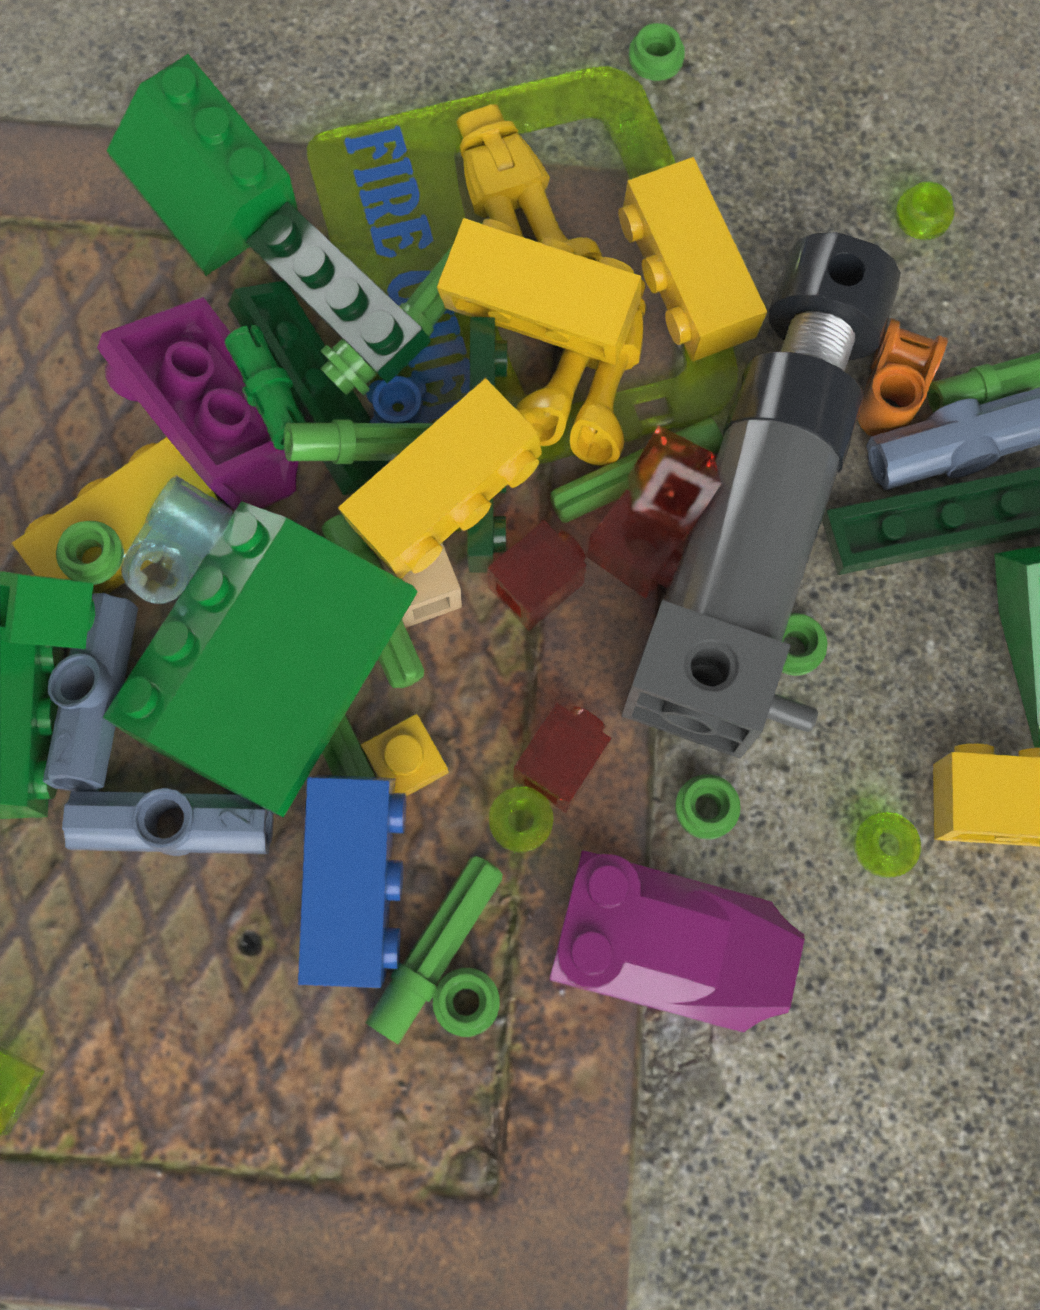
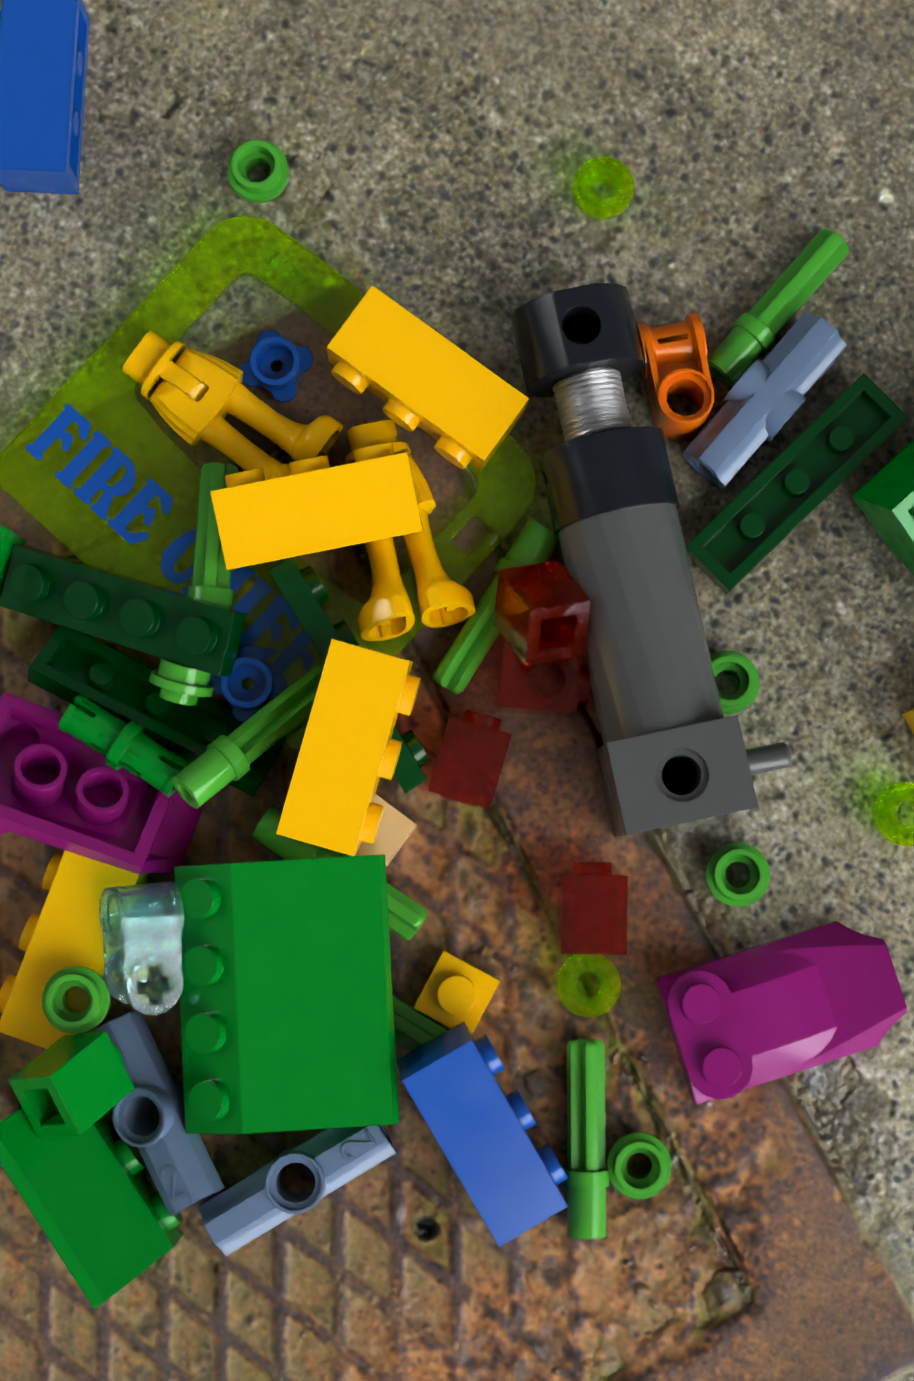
camera: 30 degrees left, 10 degrees up
(579, 181) = (274, 348): none -> blue plate

